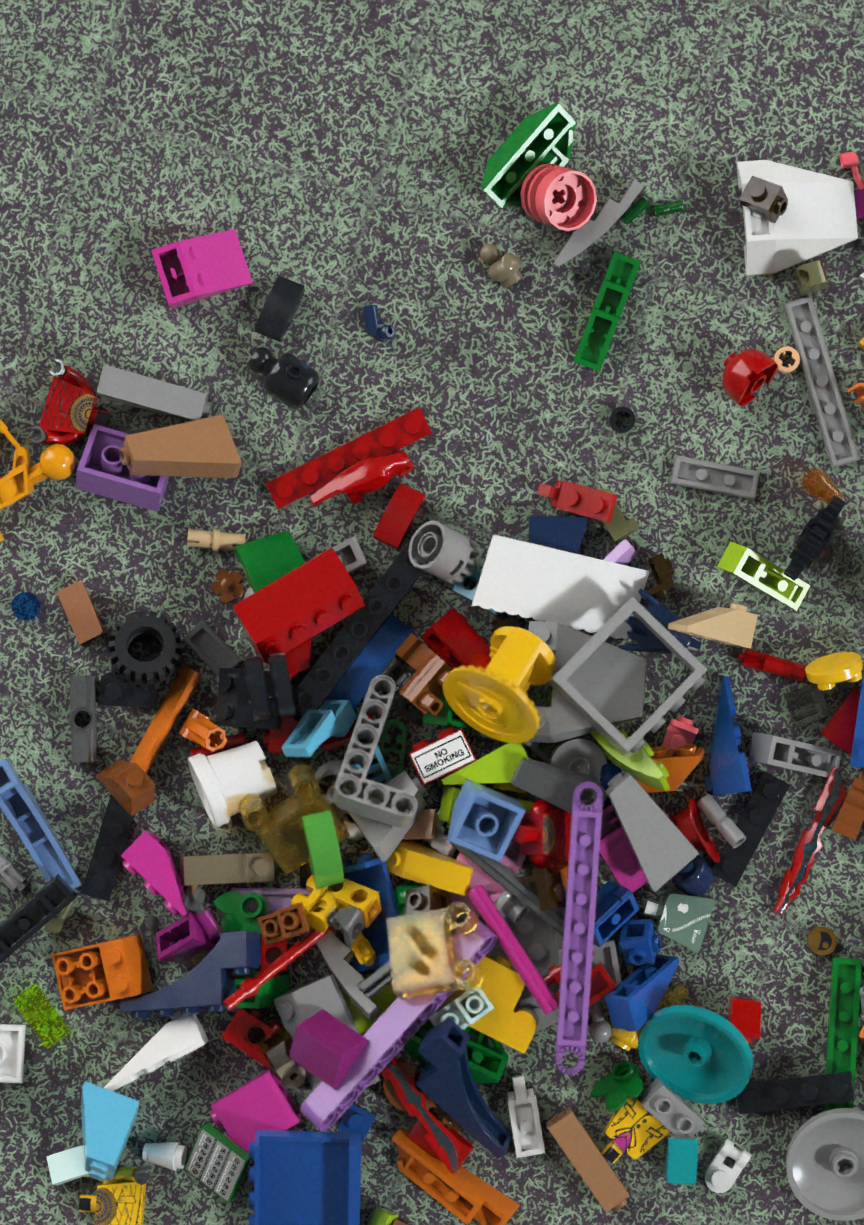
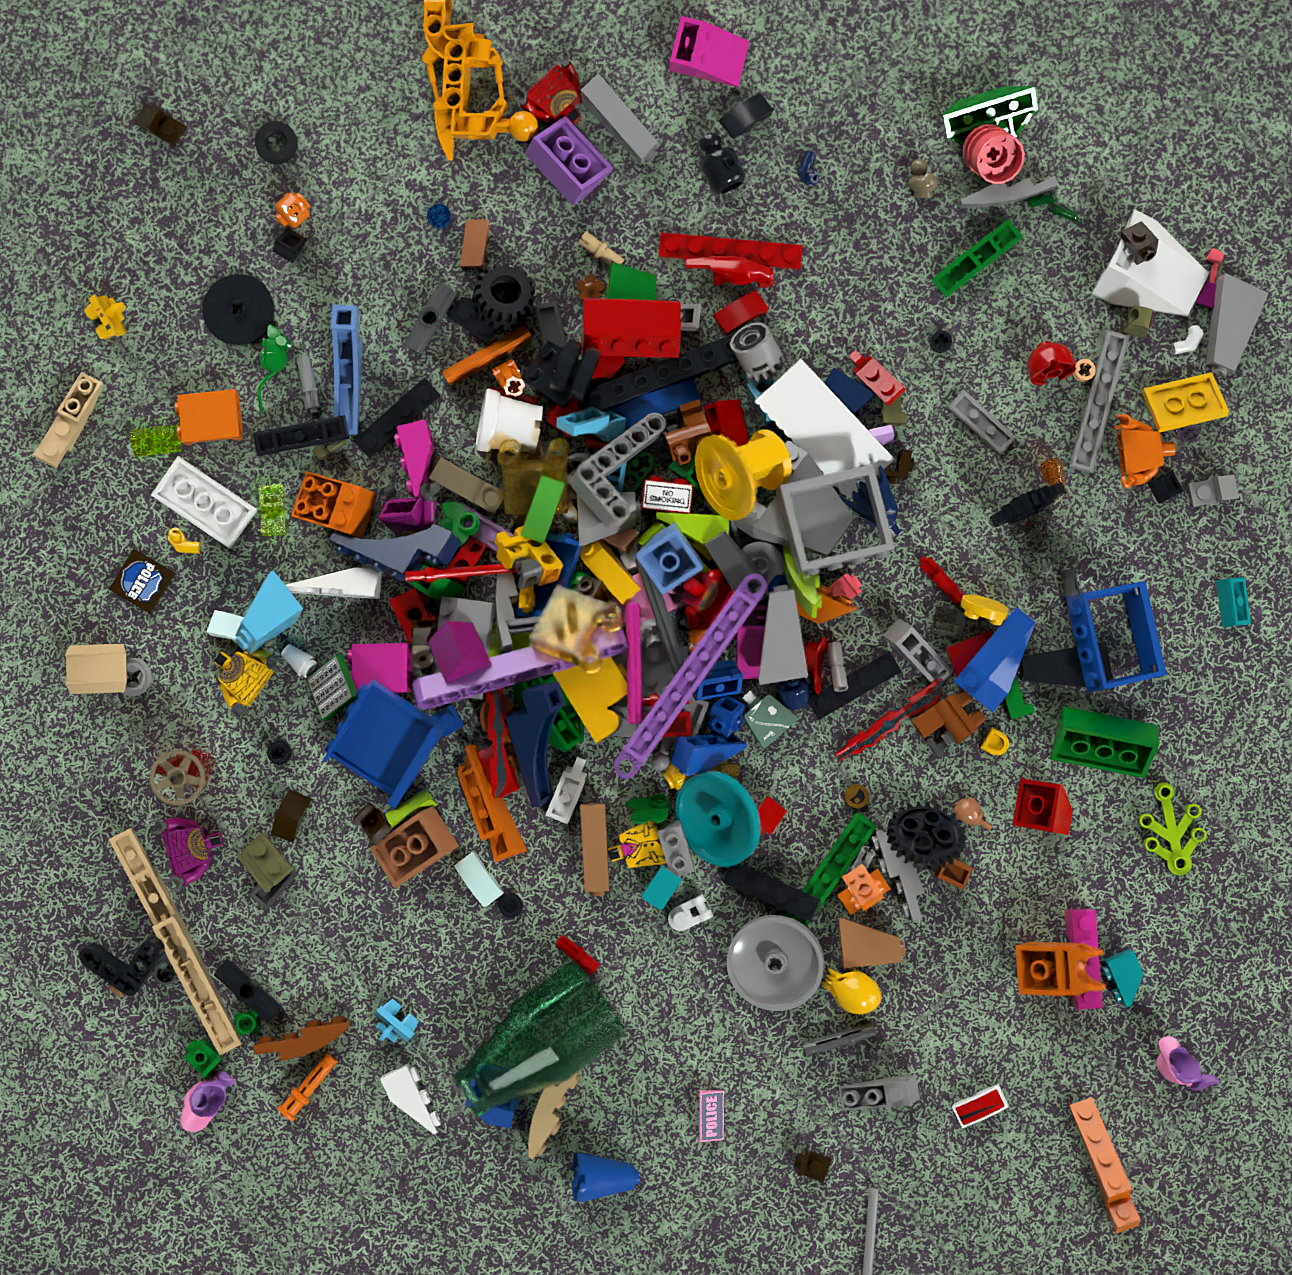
camera: 30 degrees right, 0 degrees up
(128, 785) = (433, 384): dark orange slope -> none
(183, 450) = (616, 170): medium nougat slope -> none
(283, 924) = (482, 546): dark orange slope -> none
(464, 1009) = (574, 684): light aqua slope -> none
(549, 887) = (686, 635): dark brown bracket -> none
(723, 625) = (926, 531): tan slope -> none
(726, 763) = (867, 627): blue wedge -> none
(762, 575) = (973, 511): lime slope -> none

